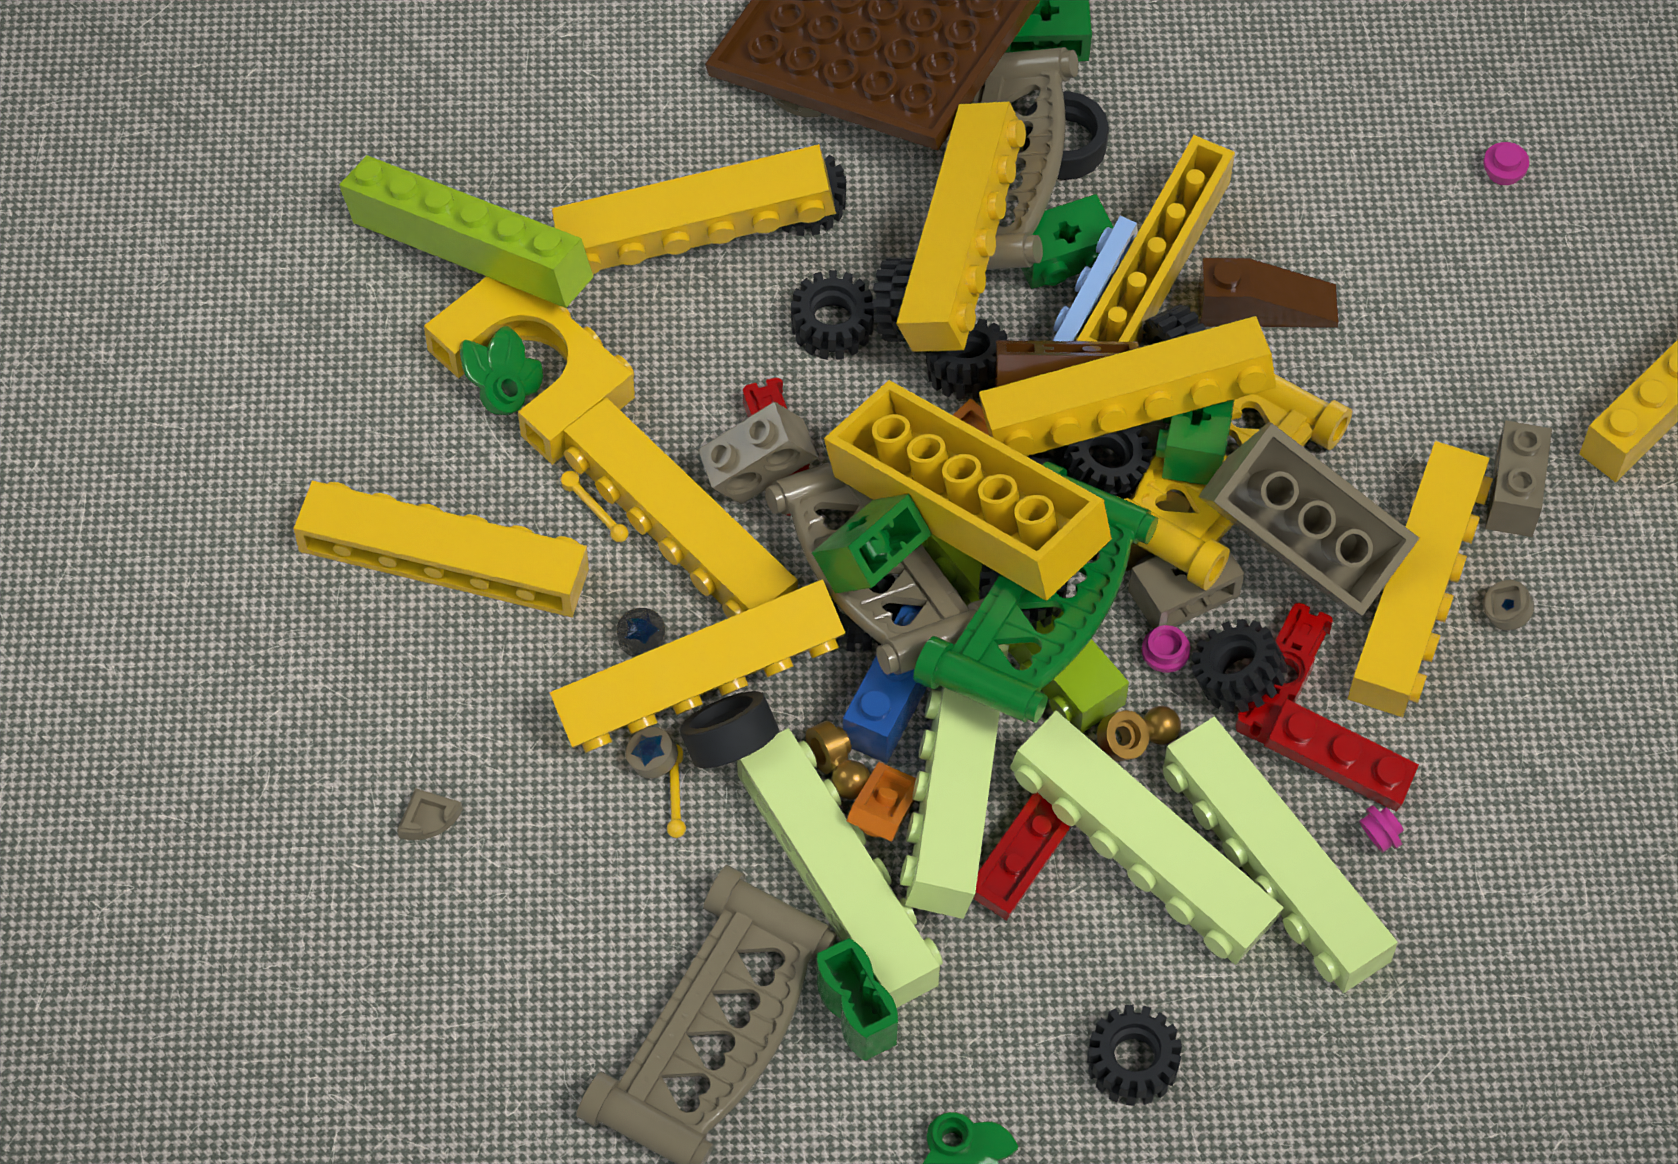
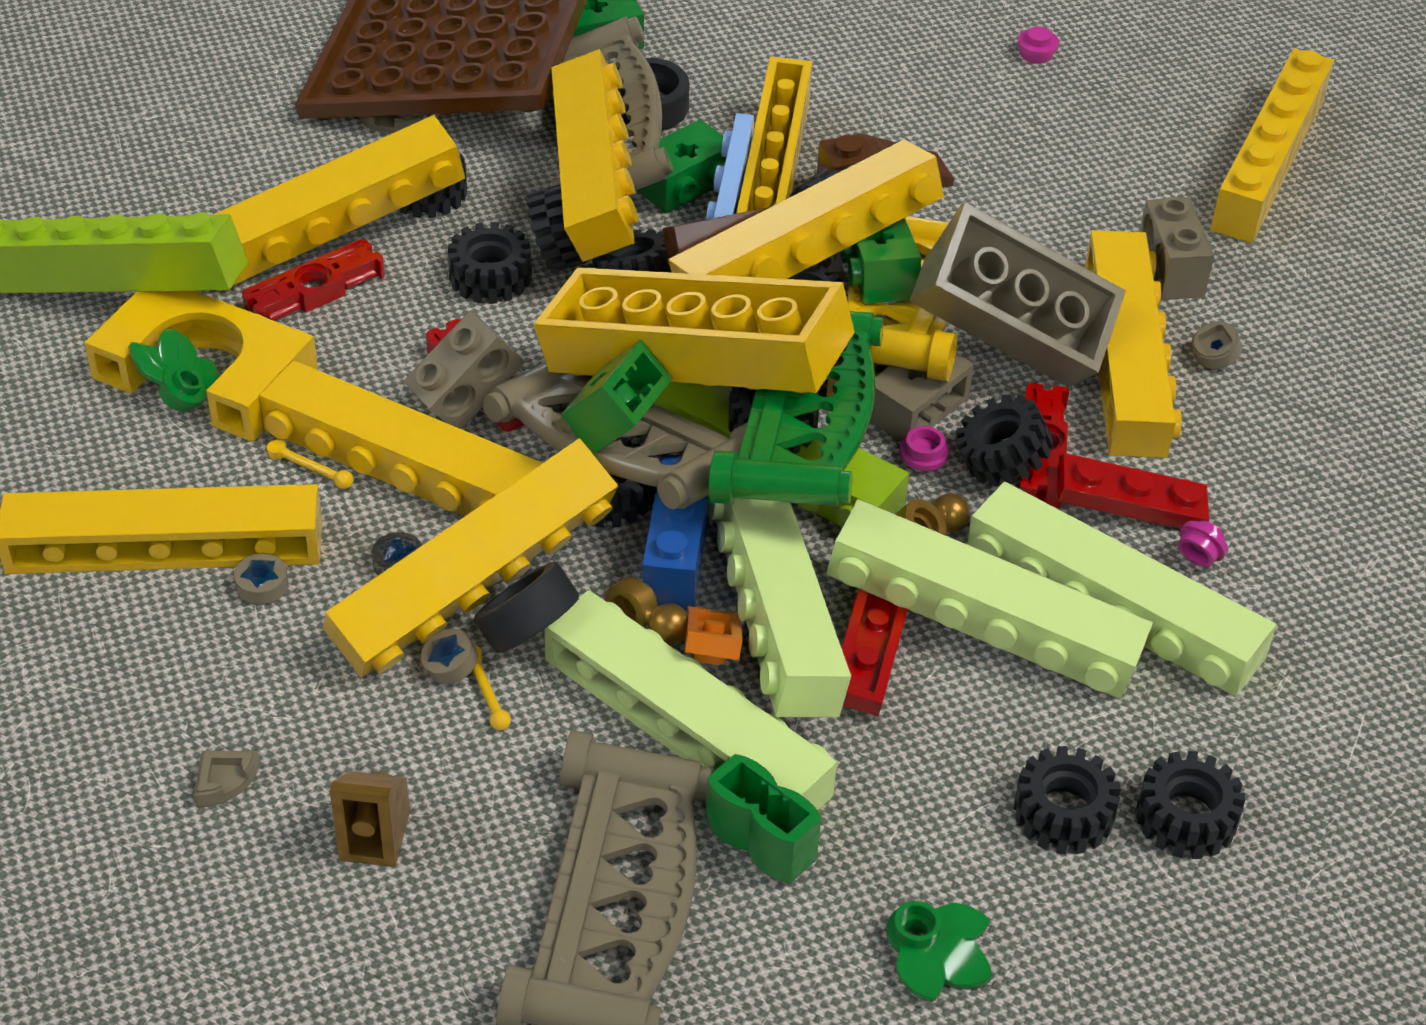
camera: 20 degrees left, 15 degrees down
(515, 622) = (261, 579): none -> dark tan tile
(533, 895) = (370, 816): none -> pearl gold slope
(628, 299) = (337, 269): none -> red piece
(1248, 1064) = (1183, 828): none -> black tyre

